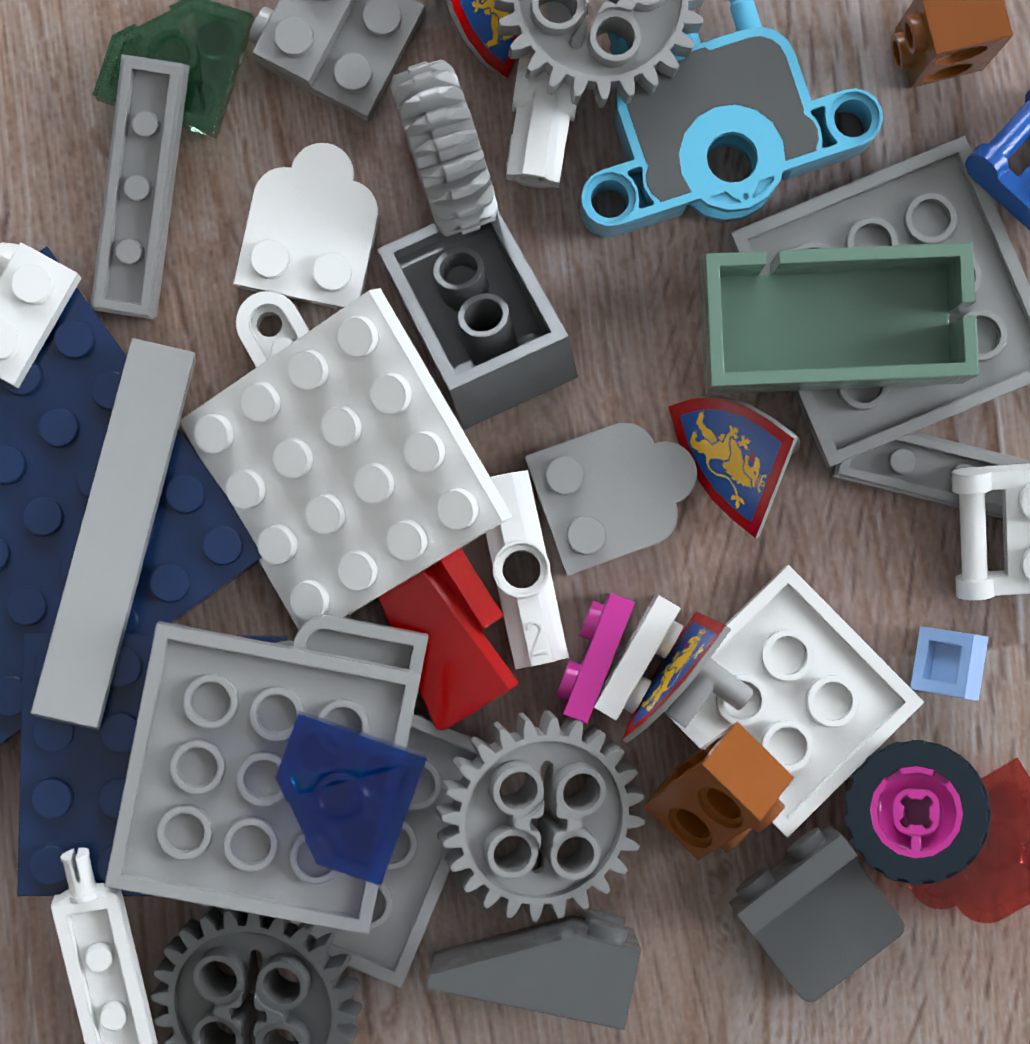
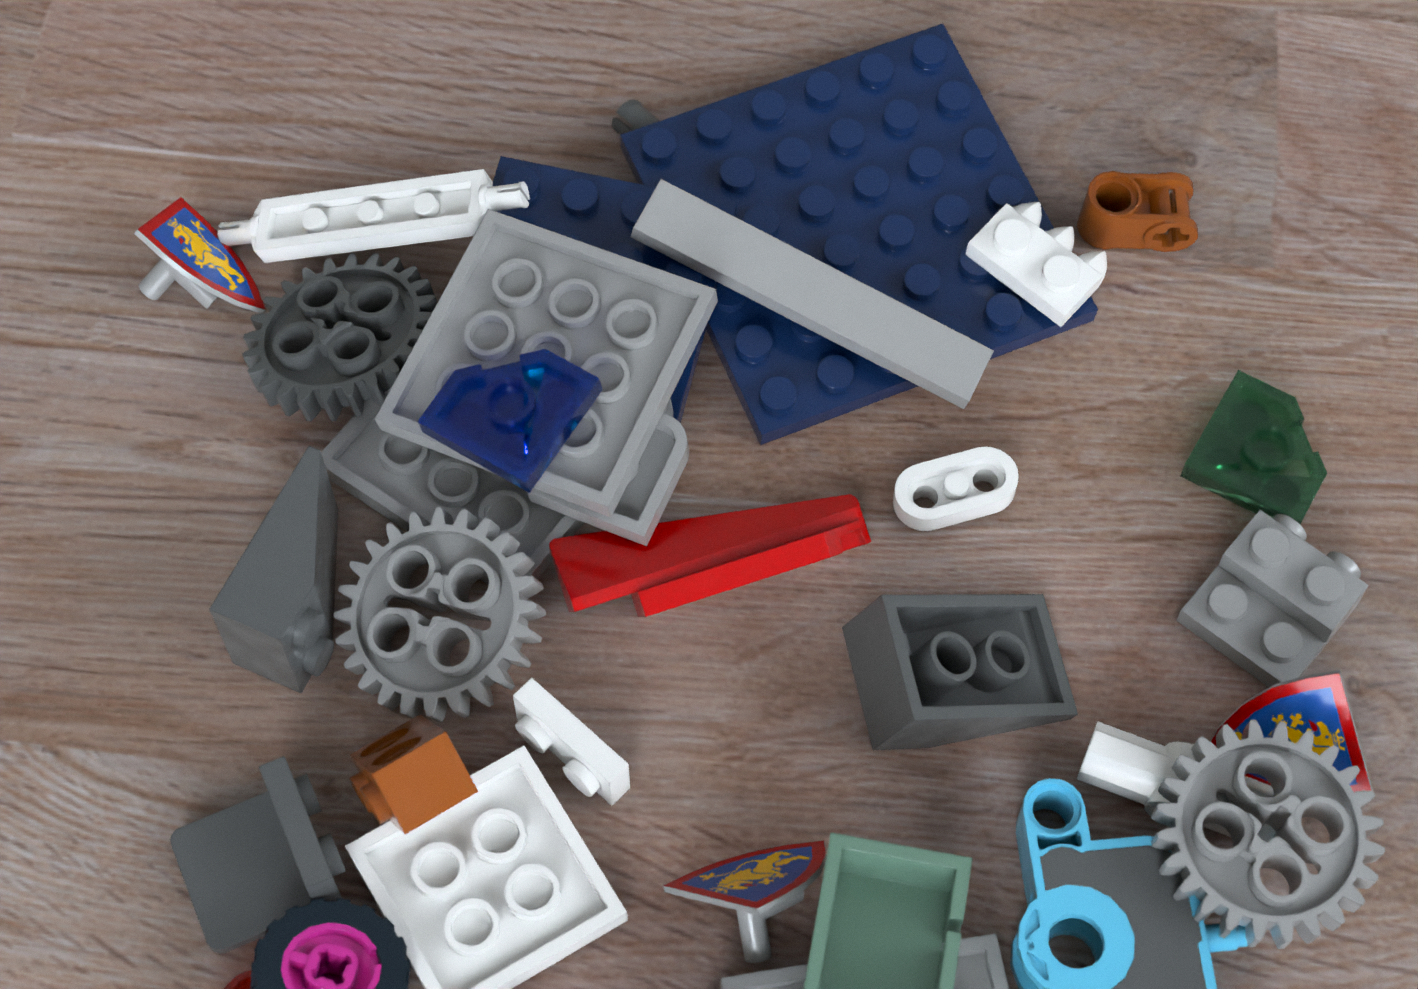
camera: 100 degrees right, 25 degrees down
(139, 186) = (1142, 393): light grey tile -> none
(310, 231) = (1071, 540): white plate -> none
(345, 463) = (831, 504): white plate -> none
(444, 147) = (1133, 656): light grey gear -> none
(529, 612) = (645, 653): white piece -> none
(583, 681) = (606, 715): dark pink plate -> none
(610, 493) = (745, 761): light grey plate -> none
(688, 678) = (530, 792): shield -> none

